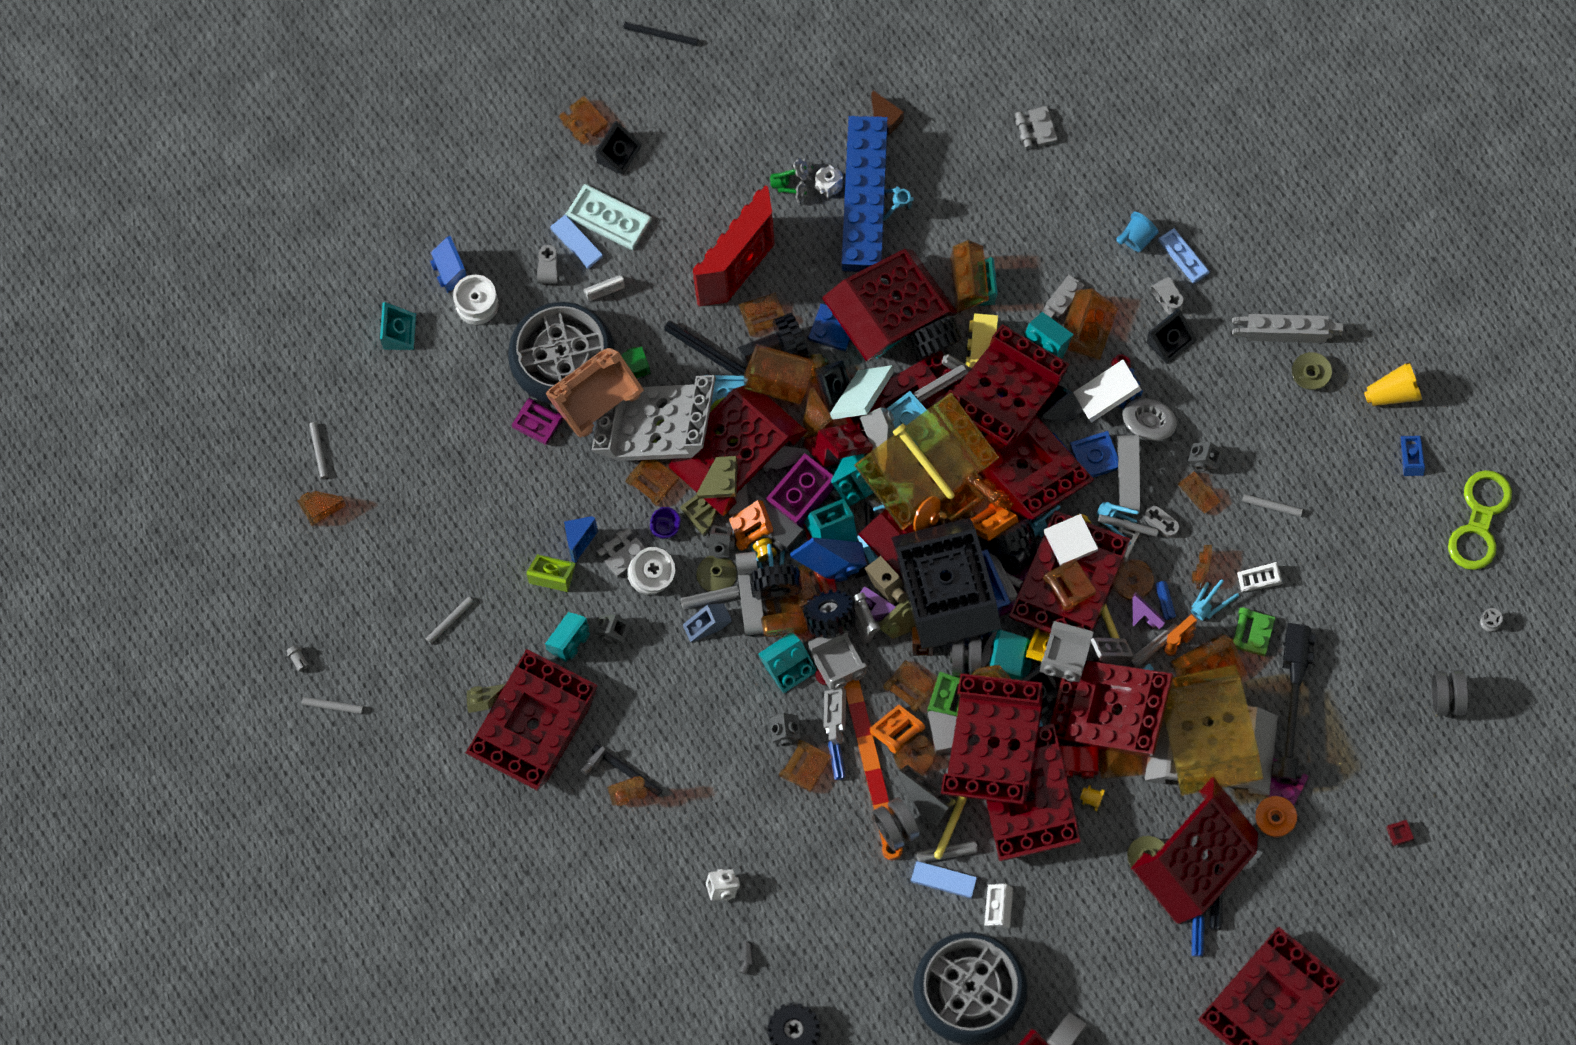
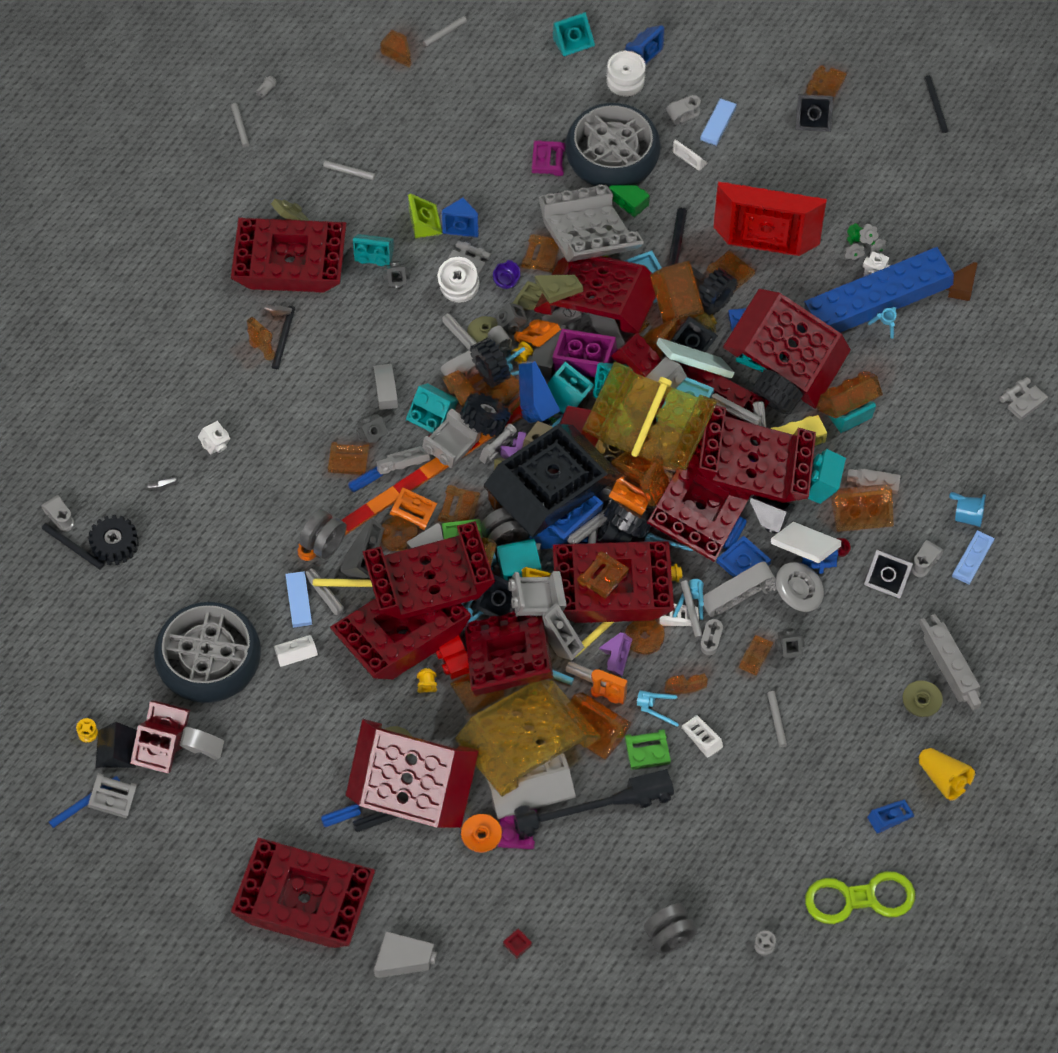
camera: 60 degrees right, 10 degrees down
(594, 390) = (582, 170): nougat windscreen -> none
(608, 217) = (753, 134): light aqua tile -> none
(707, 621) = (438, 338): sand blue slope -> none
(738, 694) = (385, 386): none -> light grey slope
(927, 513) = (608, 442): orange dish -> none
(1070, 540) = (645, 559): white tile -> none
(1165, 600) = (639, 668): blue axle -> none
(1369, 939) = (403, 956): none -> light grey slope

